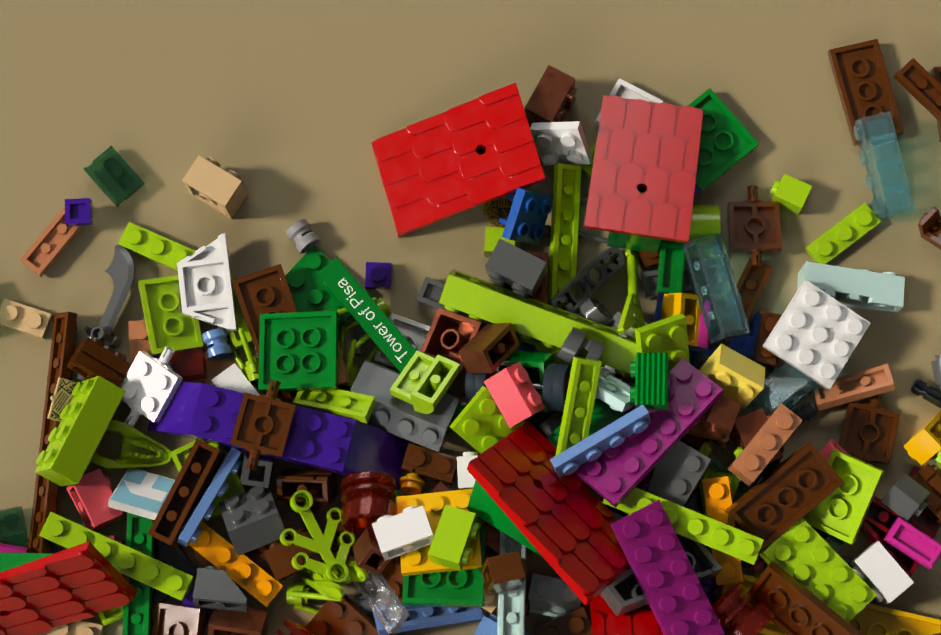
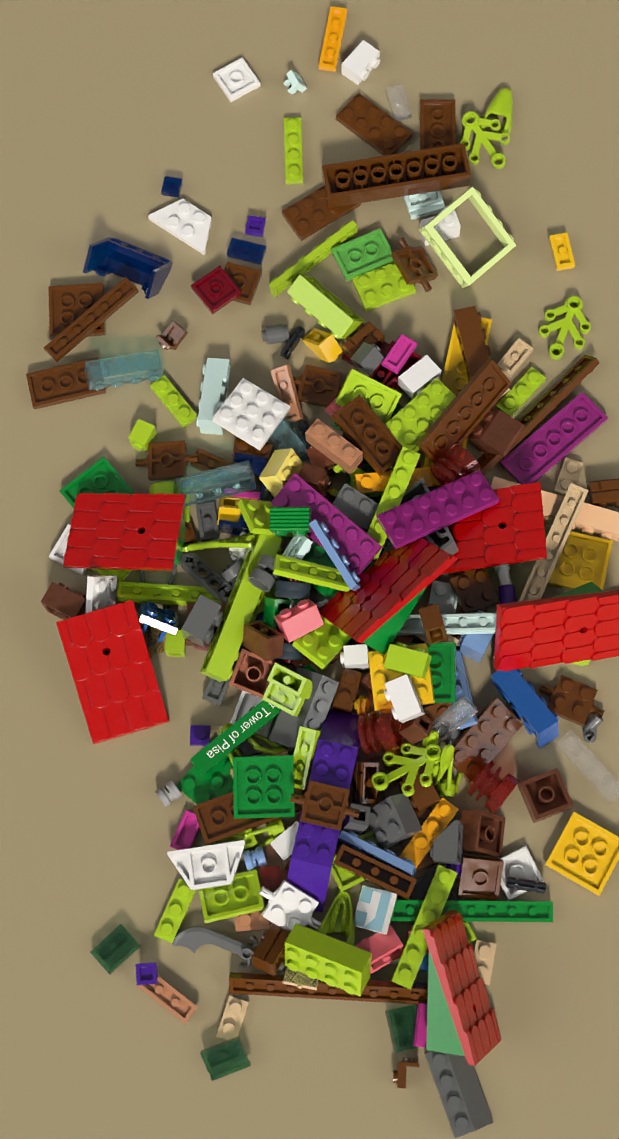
camera: 90 degrees left, 5 degrees down
(215, 186) = (127, 861): tan brick -> none
(252, 258) = (186, 832): none -> dark pink tile
(671, 268) = (200, 517): green tile -> none

